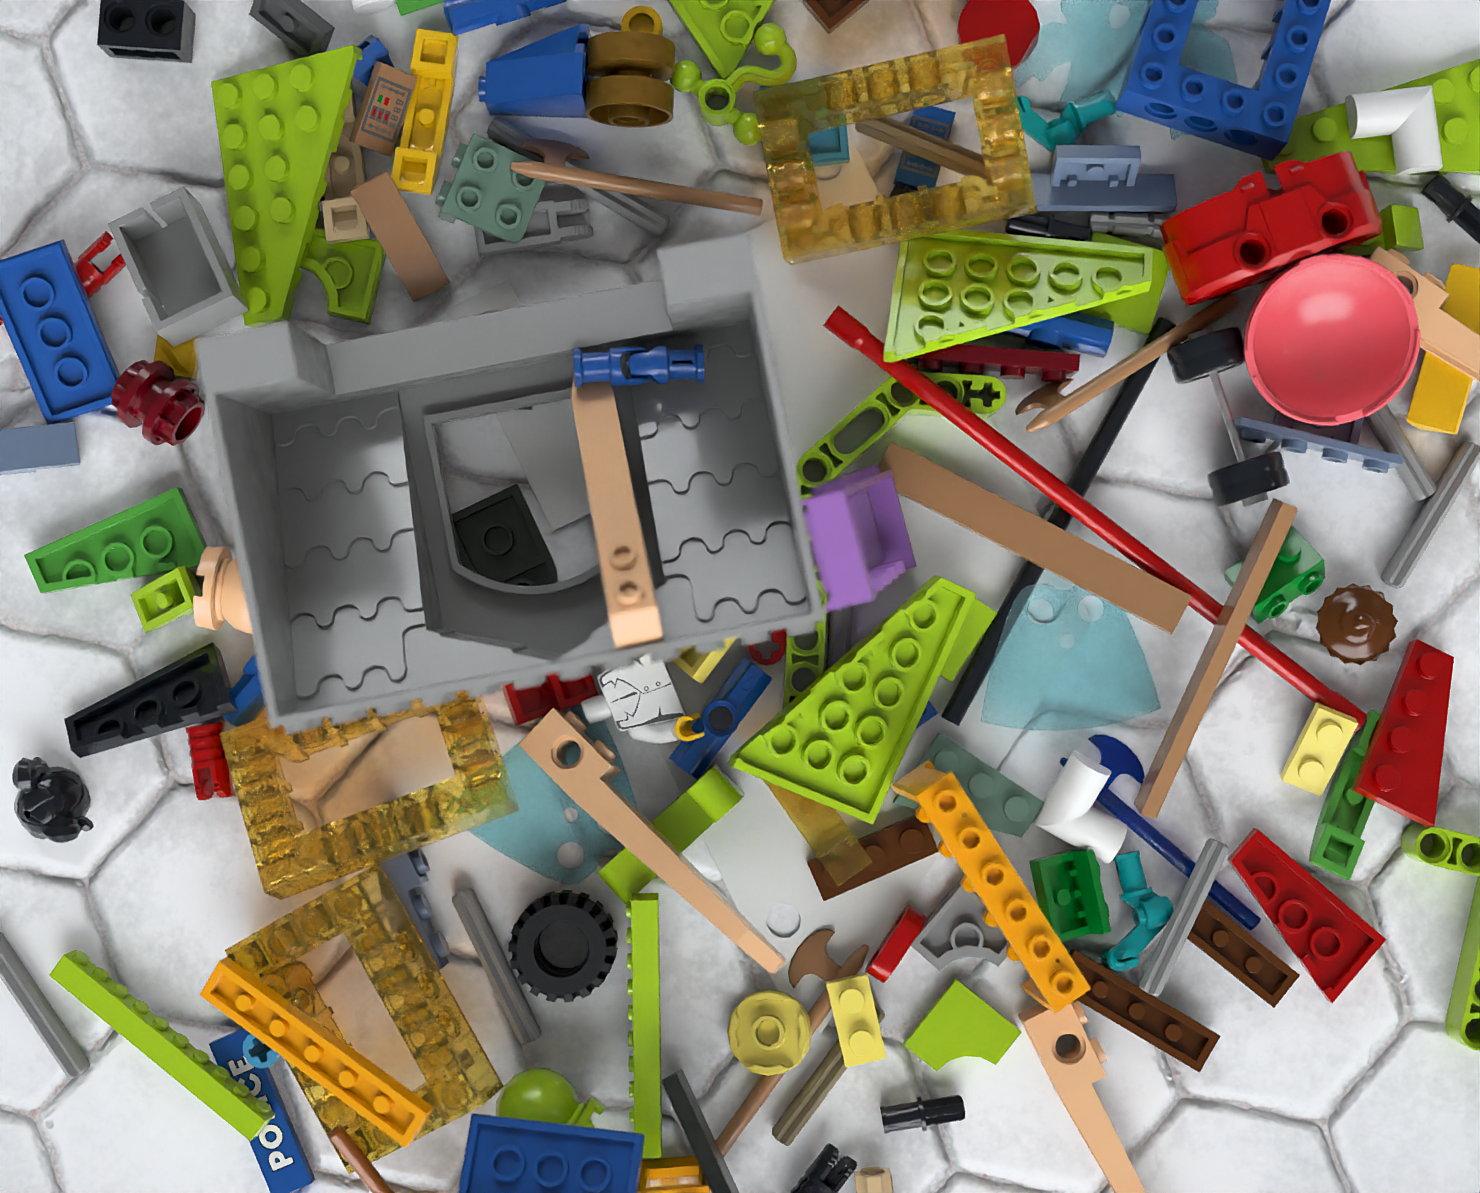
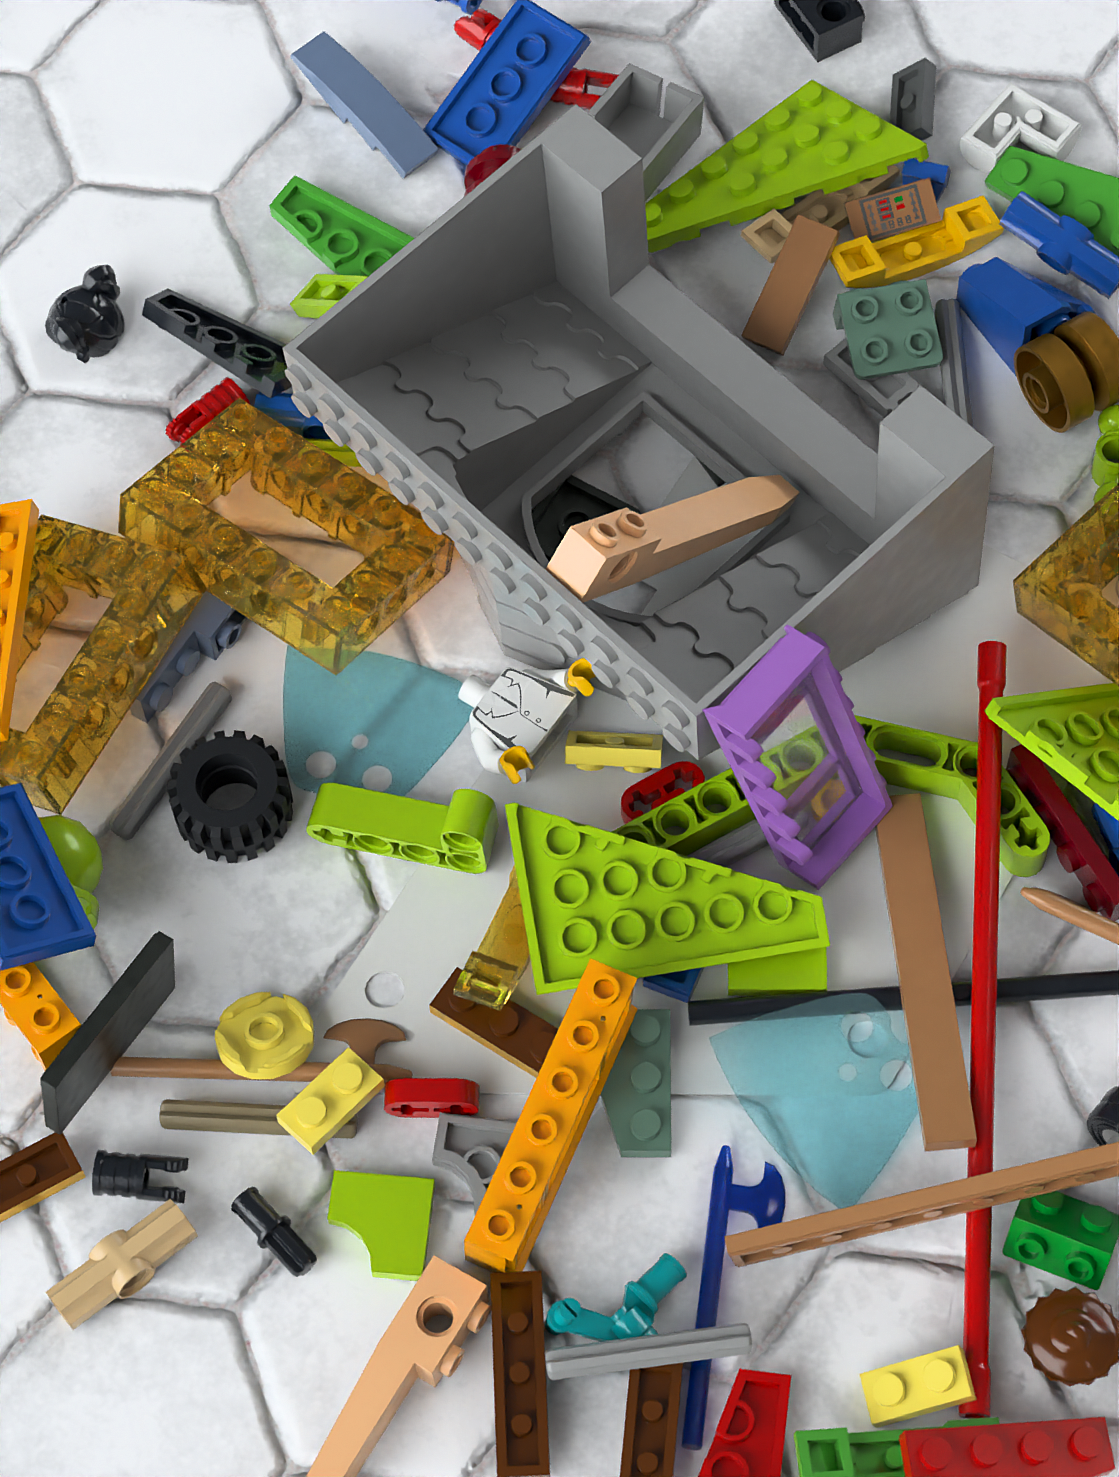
camera: 60 degrees right, 25 degrees down
(348, 274) = (728, 272): lime tile -> none
(537, 701) = (462, 649): red slope -> none
(553, 169) = (948, 363): medium nougat piece -> none
(591, 788) = (407, 715): light nougat piece -> none
(641, 366) = (823, 514): blue piece -> none
(646, 1019) = (207, 906): lime piece -> none
(736, 694) = (580, 802): blue piece -> none
(1070, 811) = (677, 1183): white brick -> none
(1071, 893) = (592, 1231): green bracket -> none

